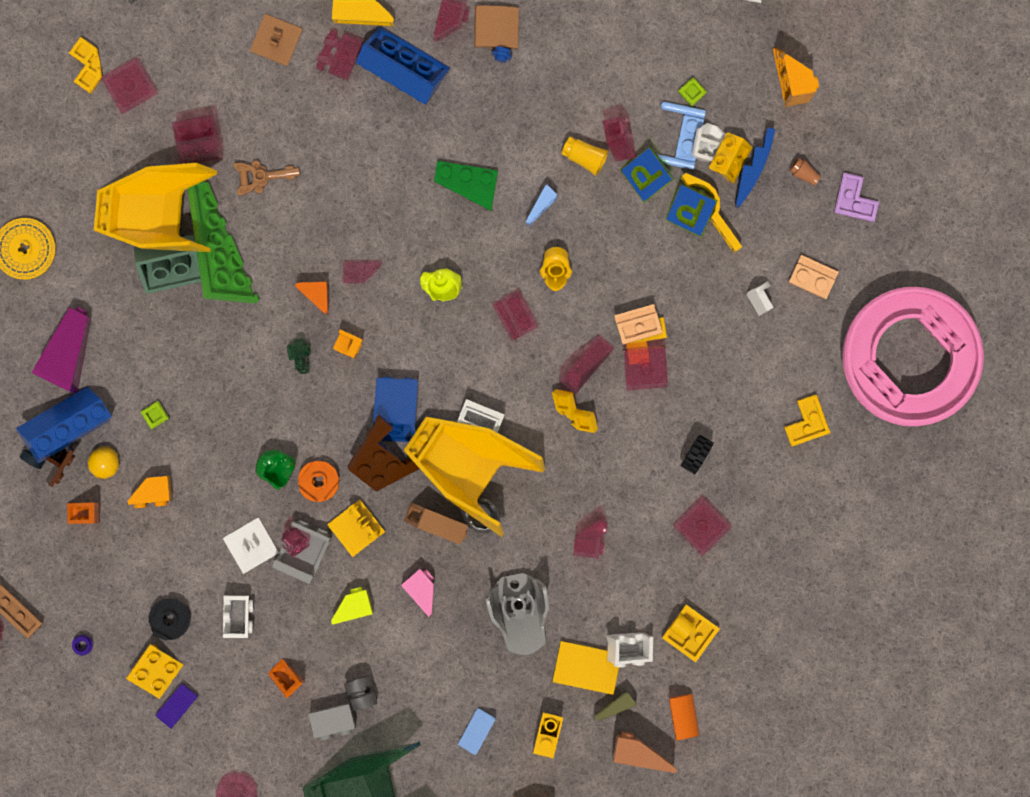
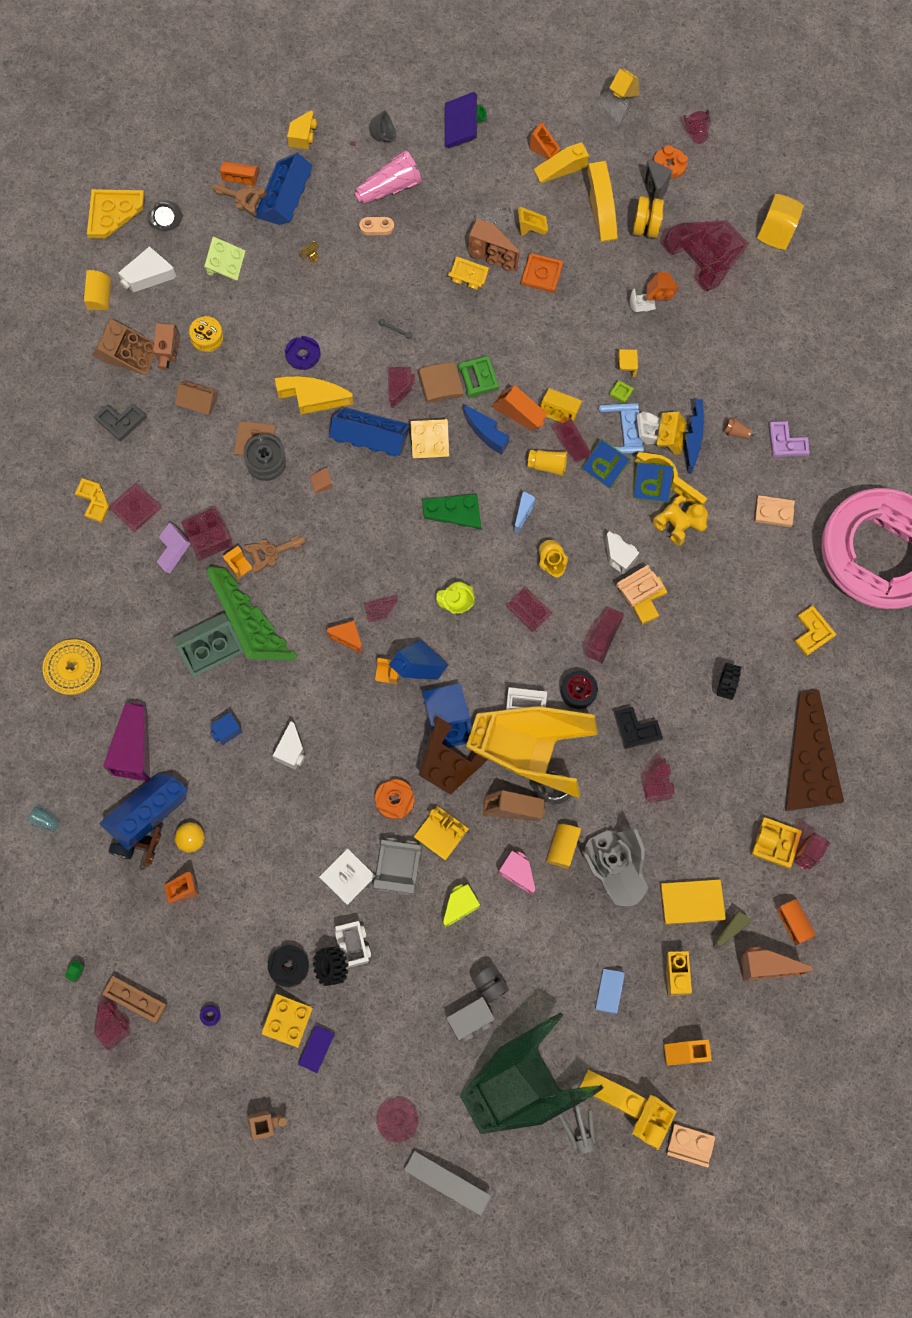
camera: 20 degrees left, 15 degrees down
(106, 763) = (262, 1124): none -> medium nougat brick
(147, 206) = (178, 595): yellow windscreen -> none
(152, 490) = (241, 850): light orange slope -> none
(154, 415) = (227, 781): lime tile -> none
(161, 146) = (176, 547): none -> lavender tile
(165, 360) = (225, 729): none -> blue brick
(209, 632) = (330, 966): none -> black tyre
(223, 182) = (237, 562): none -> light orange panel
(227, 399) = (290, 749): none -> white slope
(275, 468) = (352, 796): green hair -> none
(278, 56) = (264, 457): none -> dark grey wheel
(285, 678) = (414, 991): orange slope -> none
(294, 537) = (388, 858): clear pink plate -> none
(299, 353) = (346, 689): clear green plate -> none
(335, 109) = (321, 480): none -> nougat slope
(344, 58) = (318, 437): clear pink plate -> none
(380, 346) = (418, 662): none -> blue slope
(464, 93) = (429, 438): none -> yellow plate
(474, 576) = (563, 845): none -> yellow brick
(501, 54) = (452, 401): blue plate -> none
(529, 98) = (486, 429): none -> blue slope
(535, 408) = (583, 681): none -> wheel
(546, 31) = (484, 375): none -> bright green plate
(566, 405) = (615, 680): yellow tile -> none
(572, 84) = (520, 408): none -> orange slope
(581, 479) = (634, 733): none -> black plate
(618, 92) = (560, 406): none -> yellow brick
(629, 282) = (620, 554): none -> white slope
(630, 648) = (727, 871): white window -> none
(645, 367) = (657, 621): clear pink plate -> none
(702, 526) = (753, 746): clear pink plate -> none
(709, 59) = (628, 360): none -> yellow panel
(719, 654) = (811, 851): none -> clear pink brick
(721, 263) = (695, 517): none -> yellow animal
(756, 565) = (813, 765): none -> reddish brown wing
(759, 299) = (736, 539): white tile -> none
(795, 79) = (705, 354): light orange wedge -> none

